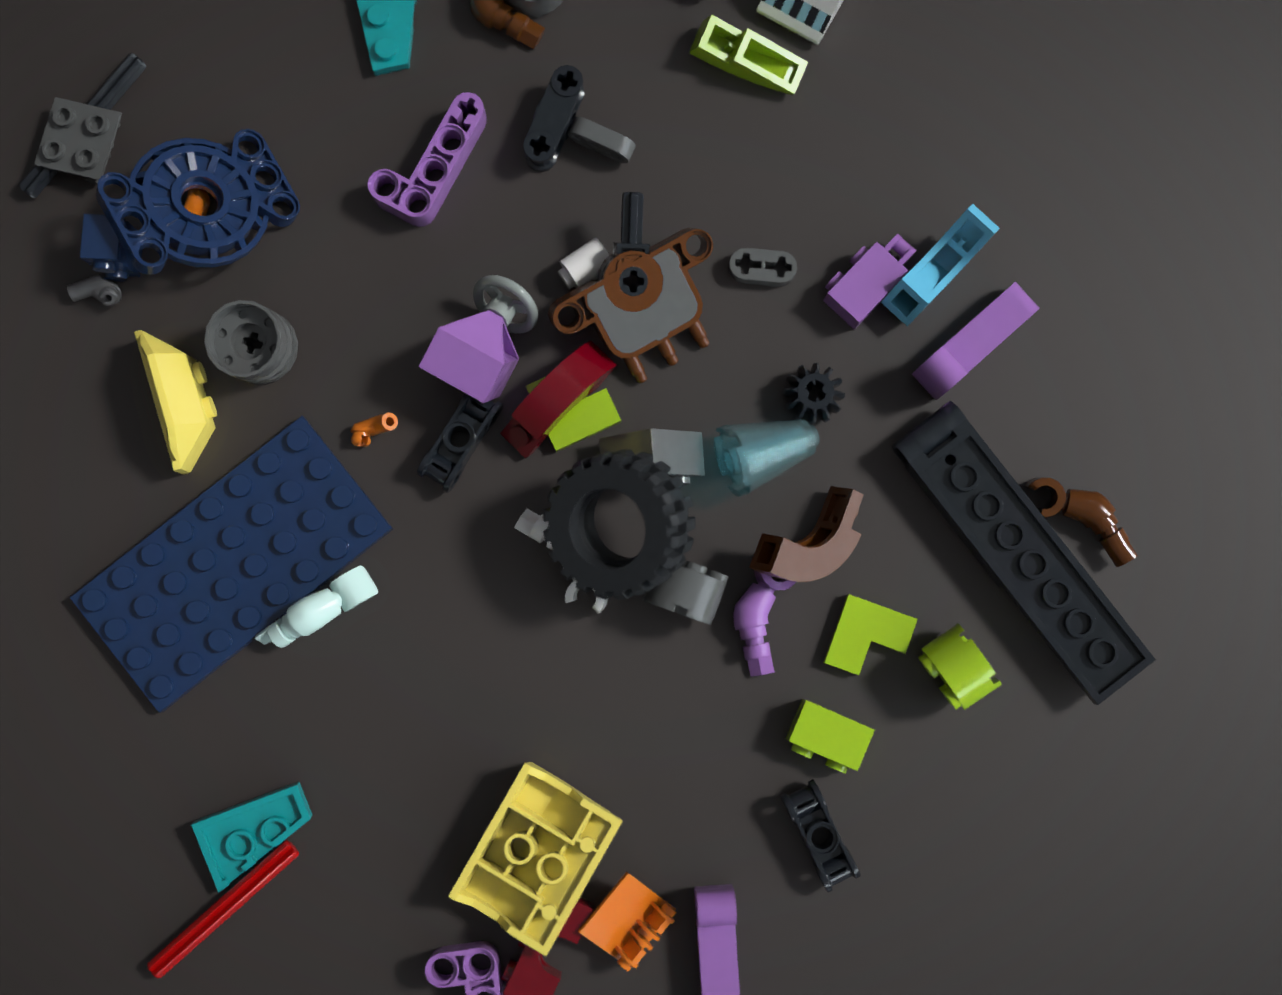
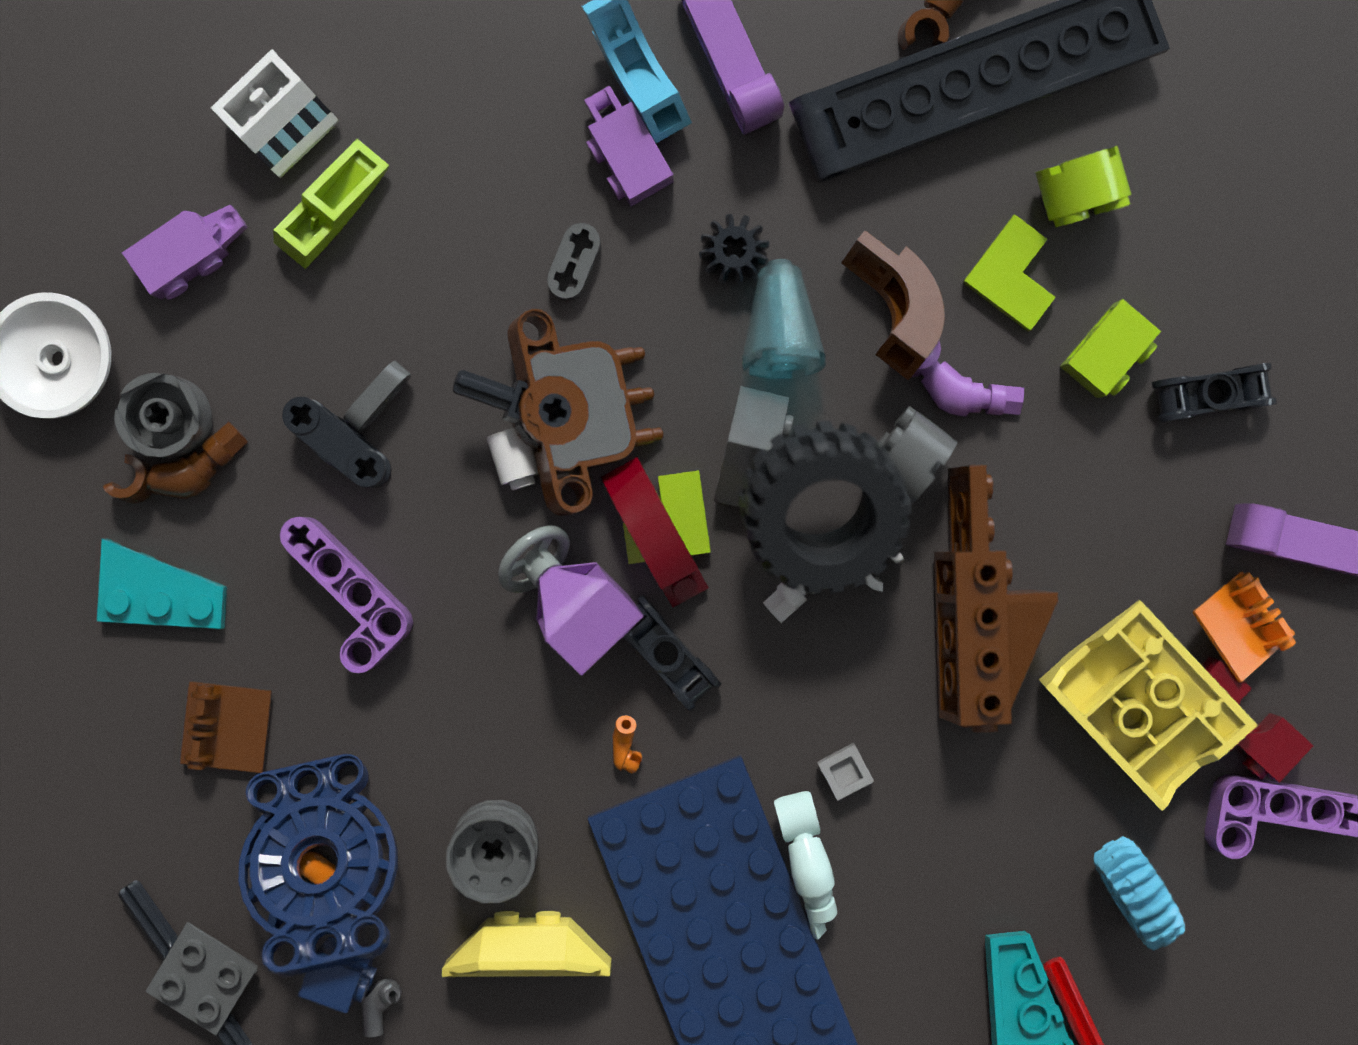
camera: 70 degrees left, 5 degrees up
(292, 99) = (225, 727): none -> reddish brown hinge
(371, 899) = (1139, 893): none -> medium azure gear
(404, 619) = (845, 771): none -> light grey plate
(568, 712) = (981, 627): none -> reddish brown wedge

